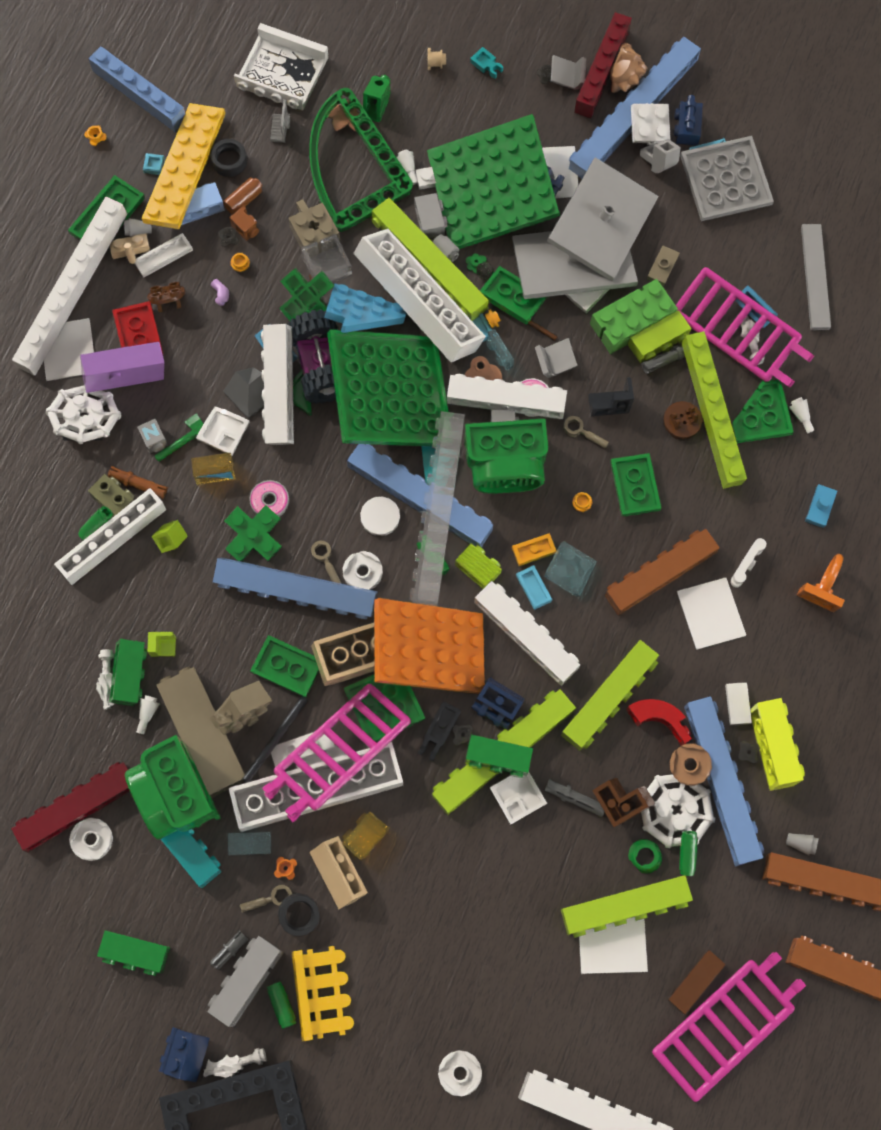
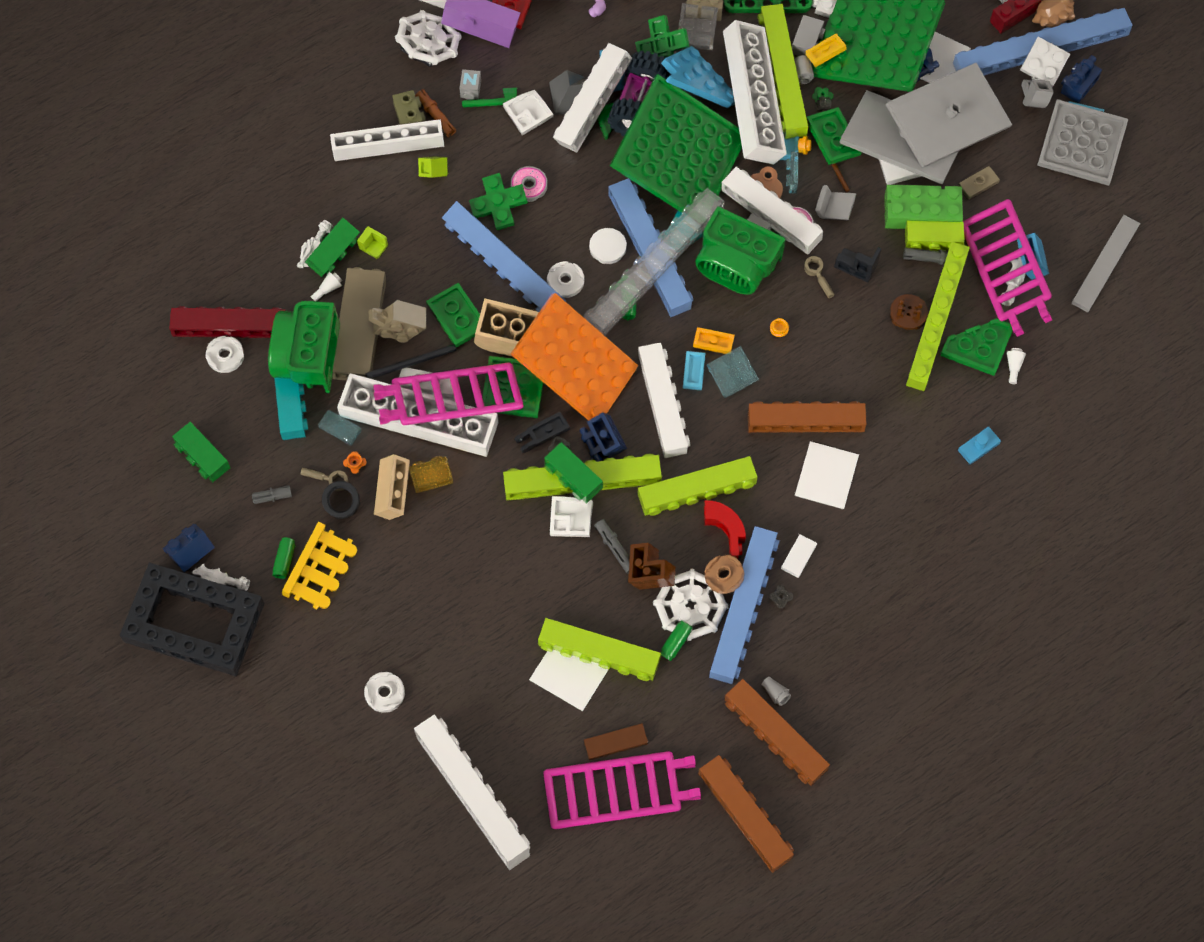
camera: 35 degrees right, 5 degrees down
(97, 520) = (386, 120): green piece -> none
(213, 468) = (500, 134): clear yellow brick -> none
(245, 981) = (267, 521): light grey piece -> none
(328, 566) = (541, 261): dark tan piece -> none
(457, 219) = (826, 50): none -> yellow plate
(478, 566) = (658, 326): lime brick -> none
(635, 484) = (832, 339): green plate -> none
(645, 843) = (648, 632): green piece -> none
(748, 562) = (883, 451): white plate -> none
(776, 744) = (804, 602): neon yellow brick -> none
(822, 593) = (928, 508): orange tile -> none

